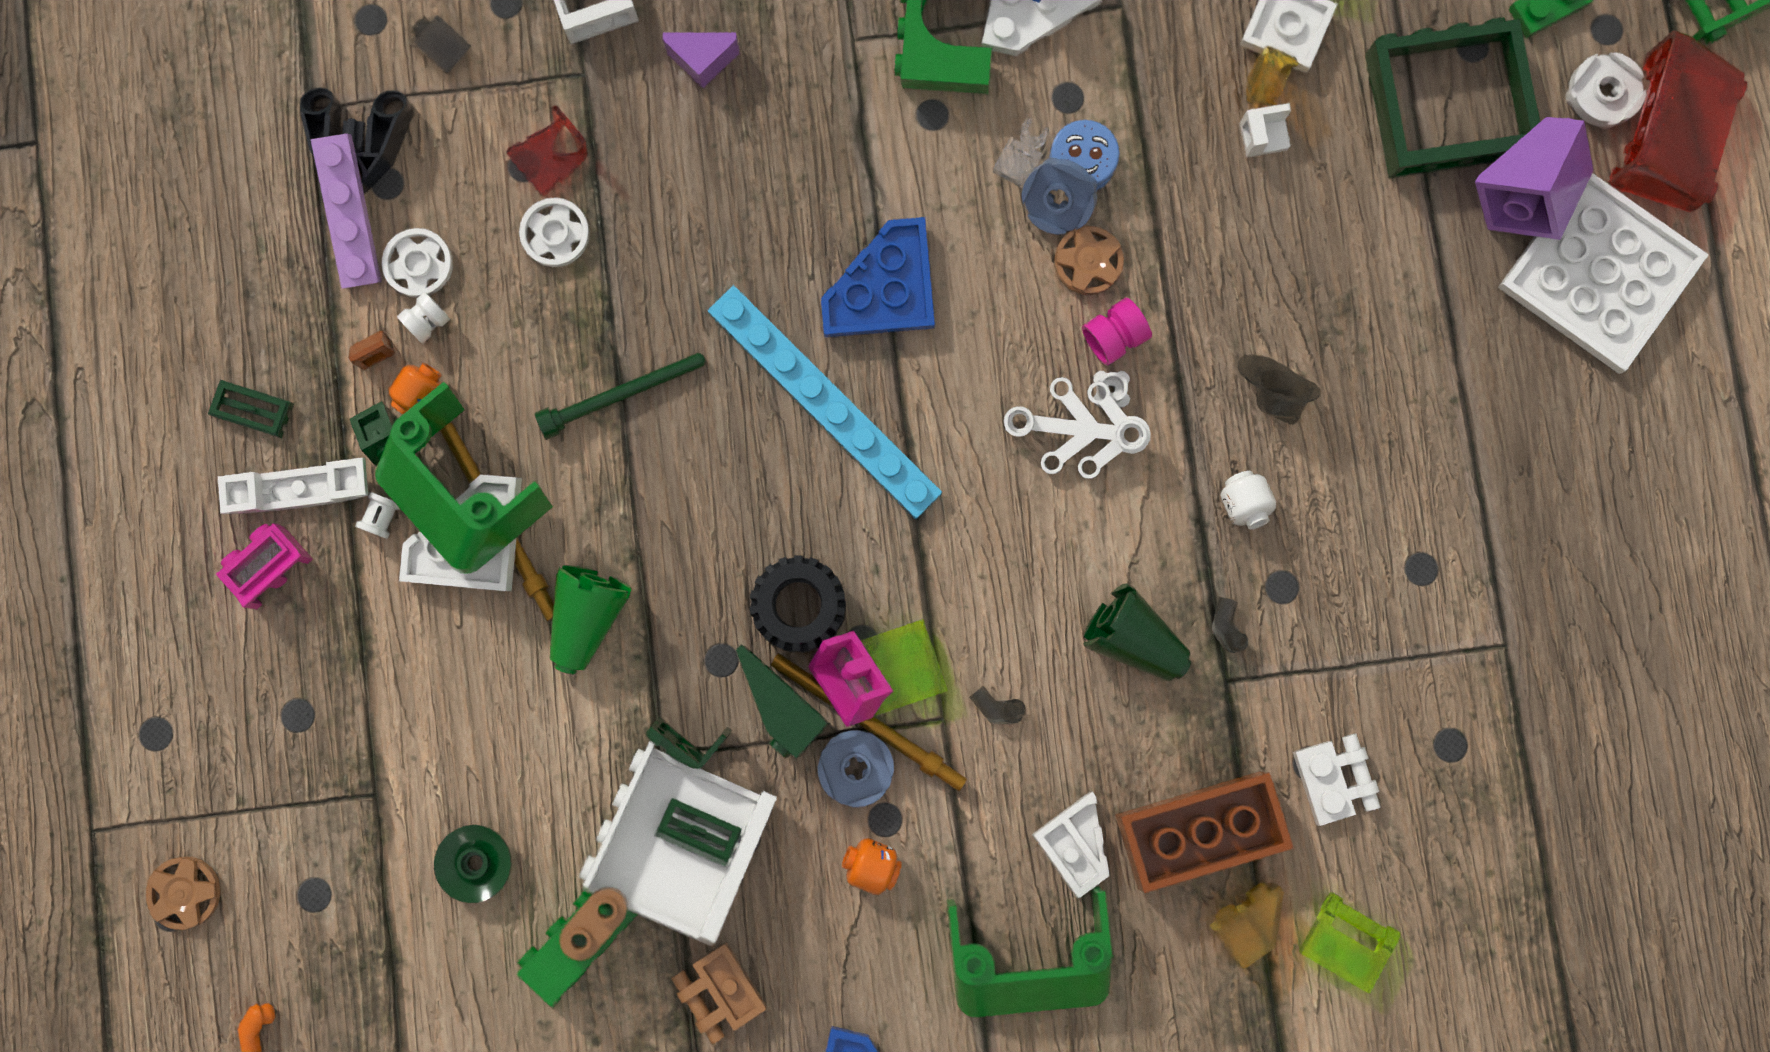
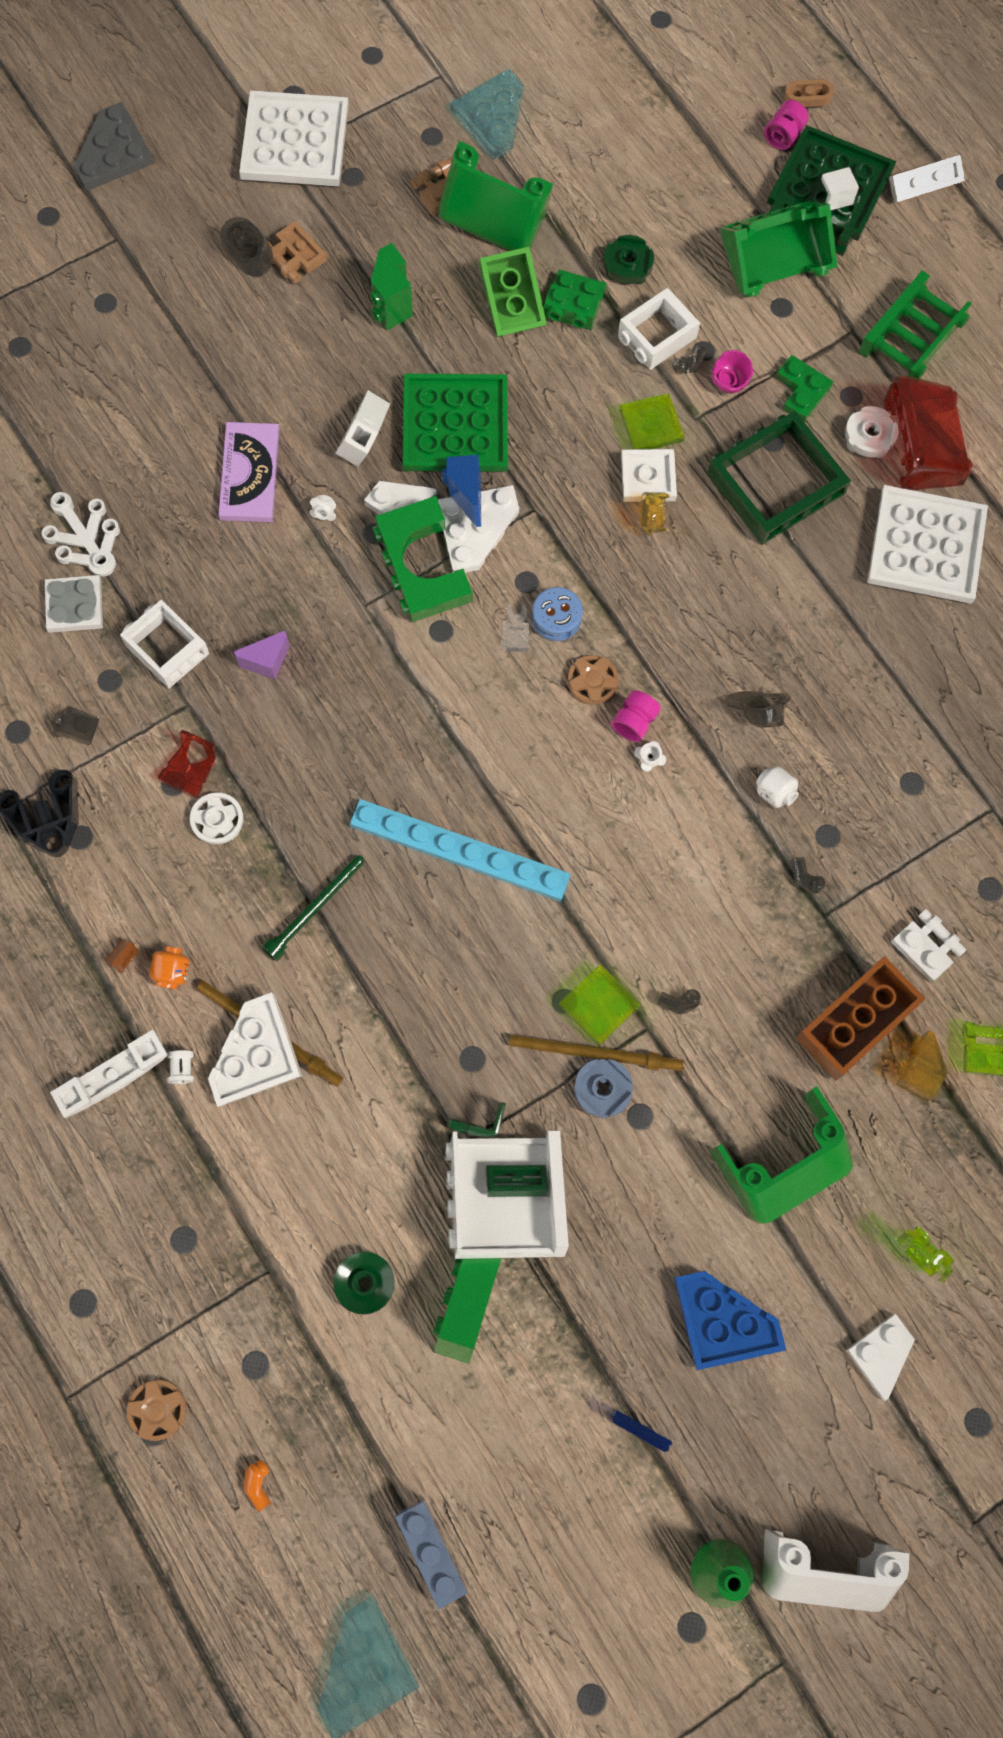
camera: 30 degrees left, 10 degrees down
(261, 564) = (110, 1140): dark pink window -> none
(280, 418) = (76, 1033): dark green tile -> none
(346, 210) = (62, 865): lavender plate -> none
(372, 430) = (155, 1011): dark green bracket -> none
(414, 318) = (150, 915): white wheel -> none
(417, 262) = (127, 881): white wheel -> none
(462, 533) = (240, 1044): green windscreen -> none
(583, 615) = (362, 1070): green cone -> none
(593, 924) = (475, 1274): medium nougat plate -> none
(728, 986) = (588, 1283): medium nougat plate -> none
(778, 577) = (516, 969): black tyre -> none
(783, 711) = (534, 1066): dark green slope -> none
(849, 678) = (570, 1025): dark pink window -> none
(871, 866) = (648, 1150): orange head -> none
(884, 285) = (464, 754): blue plate -> none
(1068, 177) = (544, 633): sand blue plate -> none
(1076, 845) = (779, 1071): white wing -> none
(1084, 429) = (646, 788): white plant -> none
(1136, 636) = (749, 908): dark green cone -> none
(1265, 130) = (667, 547): white panel -> none
(1538, 180) = (858, 503): medium lavender slope -> none

